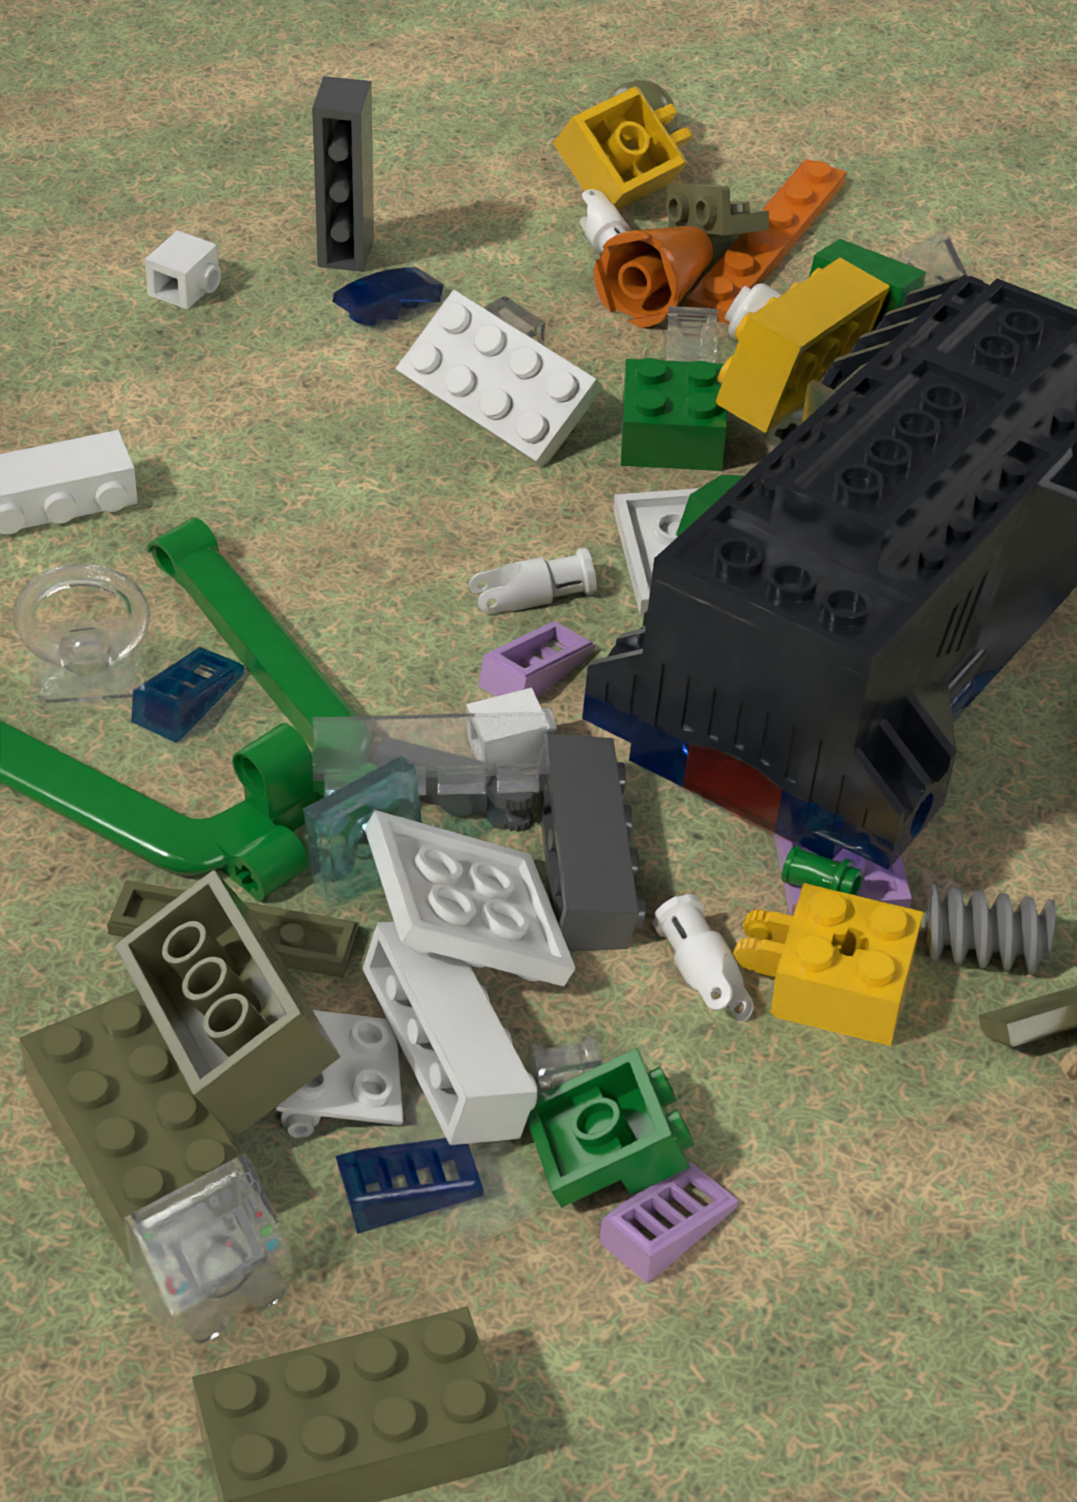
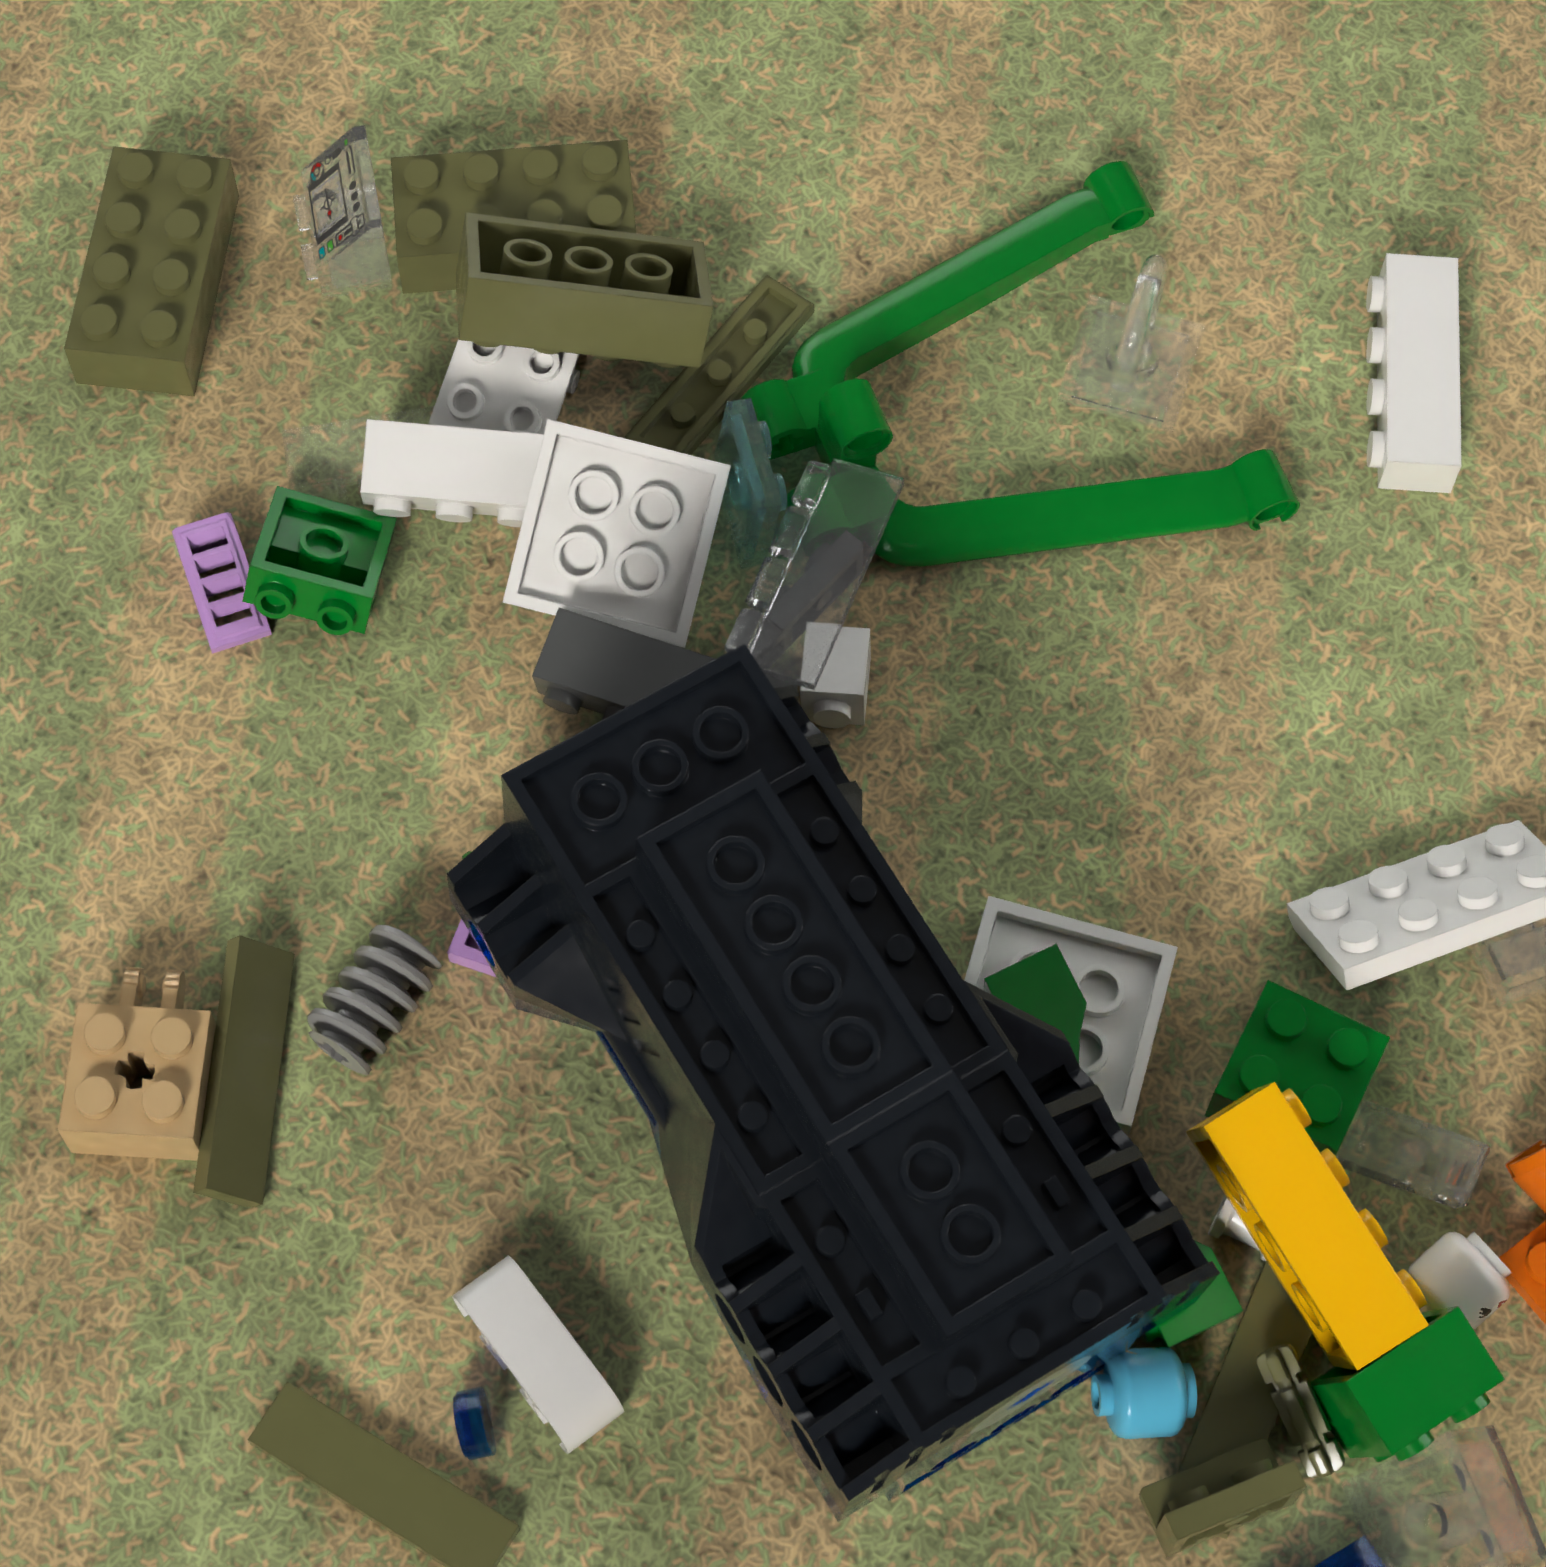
camera: 115 degrees right, 20 degrees up
(173, 717) = (1011, 414): slope -> none
(393, 1205) = (365, 360): clear blue slope -> none
(502, 668) = (915, 737): lavender slope -> none
(534, 582) = (1073, 819): white piece -> none
(561, 1063) = (414, 565): clear bush -> none
(702, 955) = (479, 734): white piece -> none
(835, 961) = (393, 807): yellow hinge -> none

